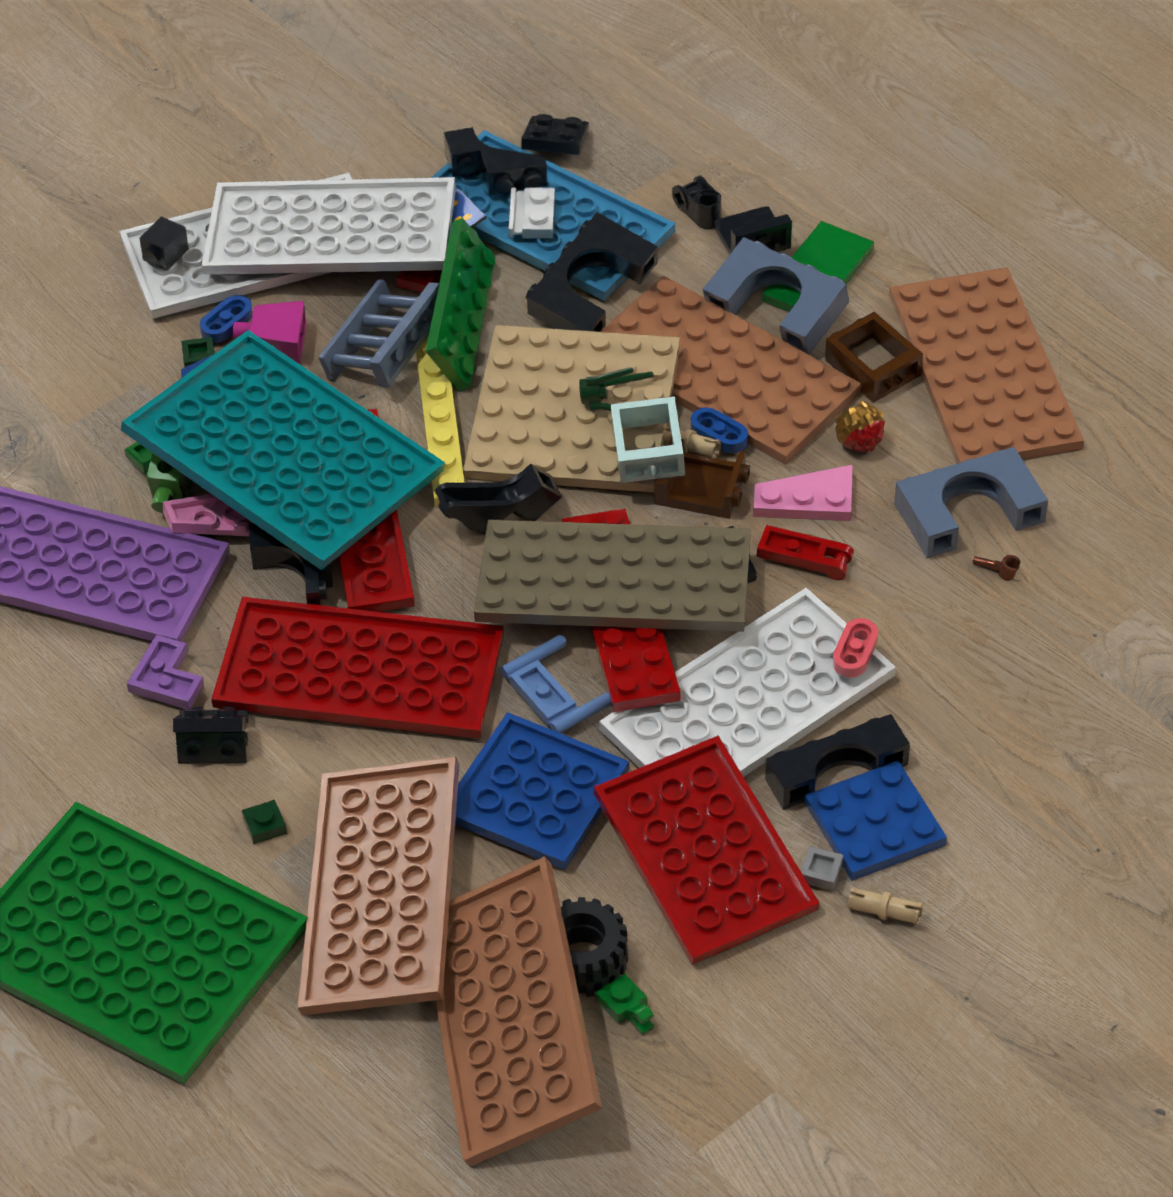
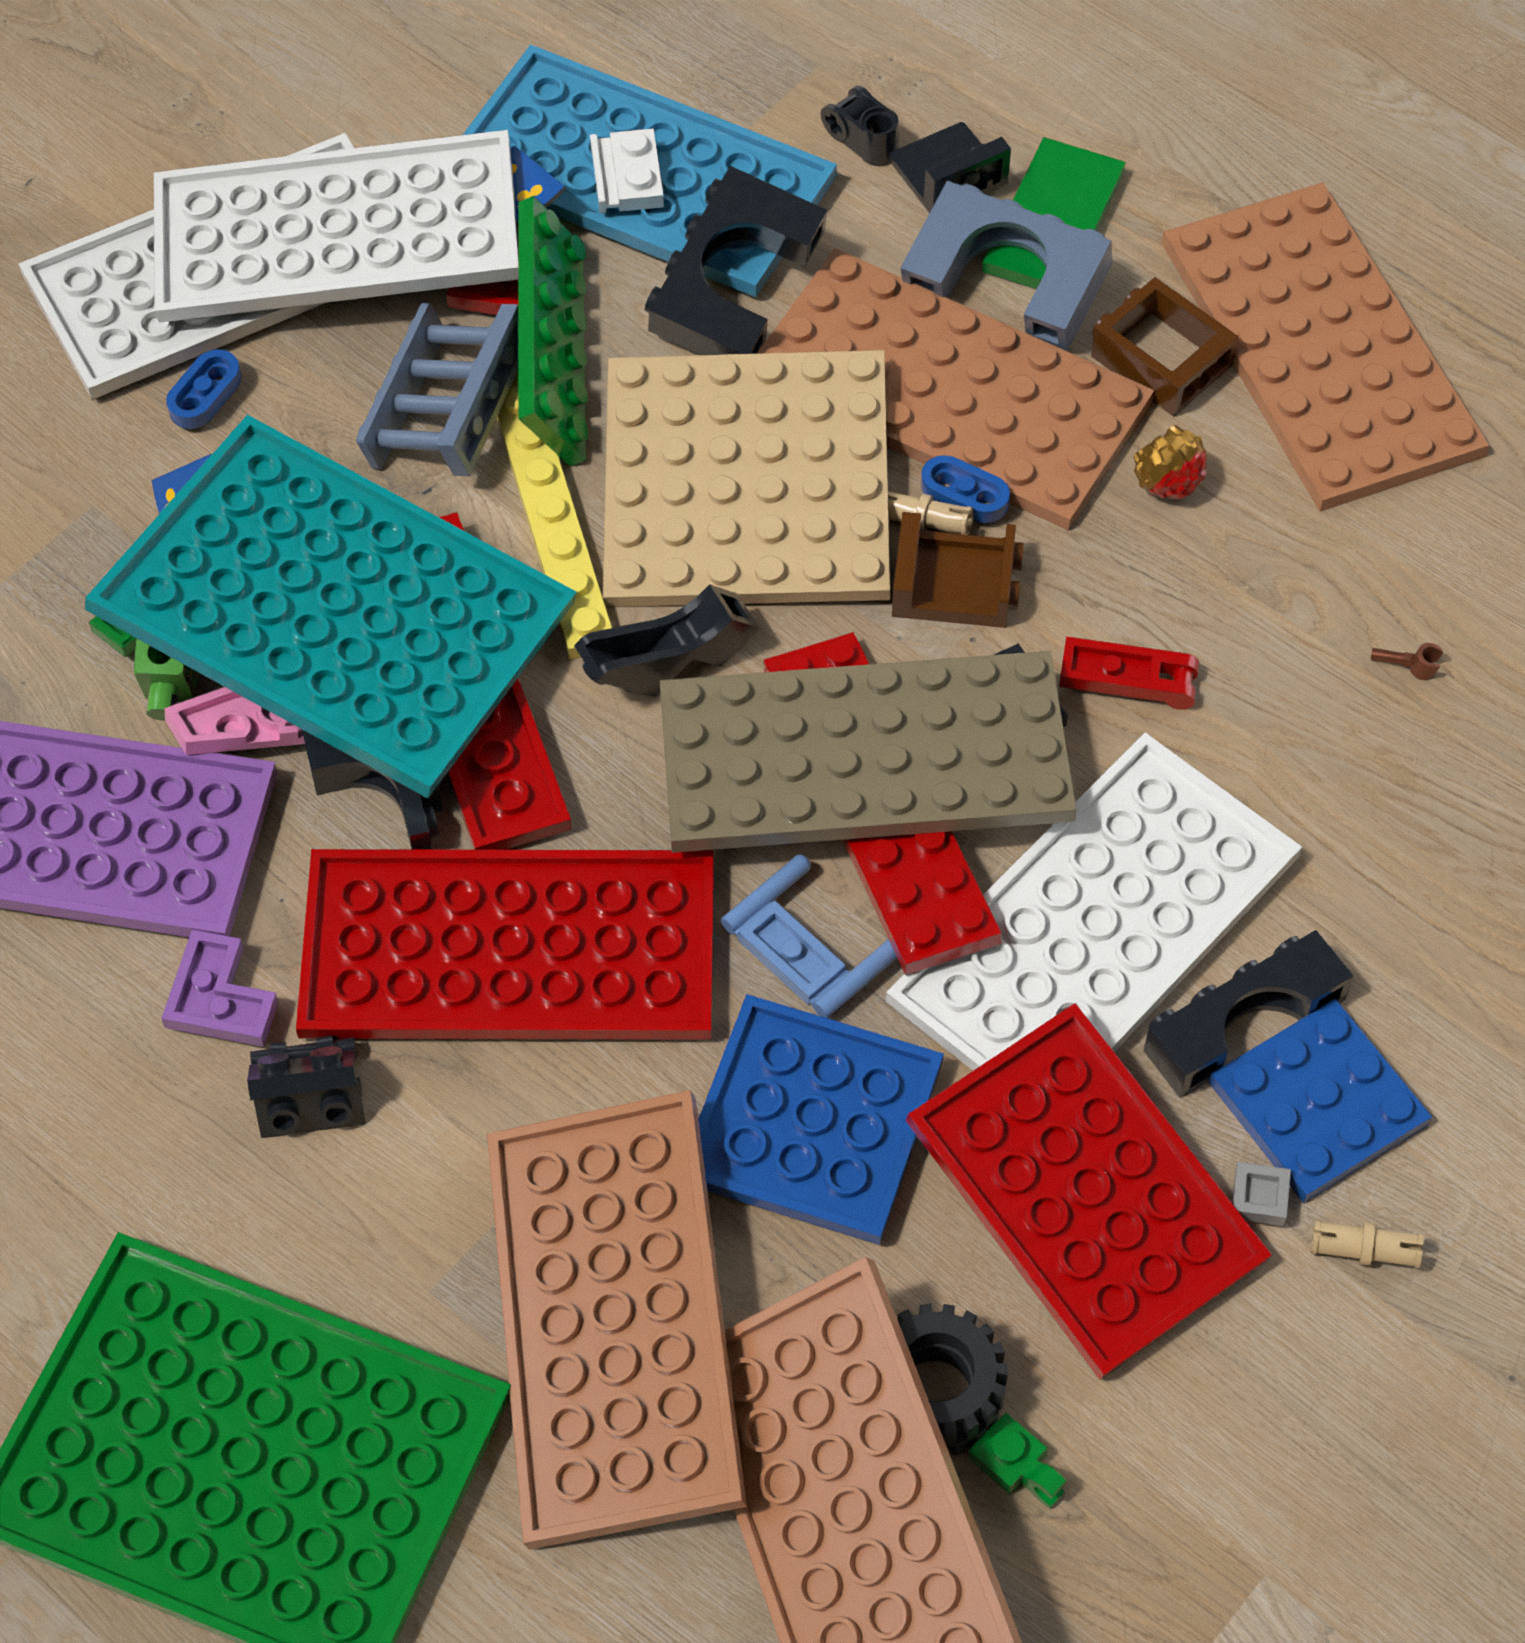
camera: 10 degrees left, 10 degrees up
(164, 243) = (91, 280): black brick -> none
(196, 350) = (171, 448): dark green plate -> none
(264, 821) = (411, 1223): dark green plate -> none
(279, 325) = (283, 395): dark pink torso -> none
(499, 167) = (568, 105): black arch -> none
(555, 134) = (634, 41): black plate -> none
(594, 388) = (780, 451): dark green plant -> none
(634, 464) = (865, 567): light aqua window -> none
(807, 496) = (1113, 579): bright pink wing -> none
(853, 650) = (1241, 830): coral plate -> none
(996, 475) = (1380, 517): sand blue arch -> none

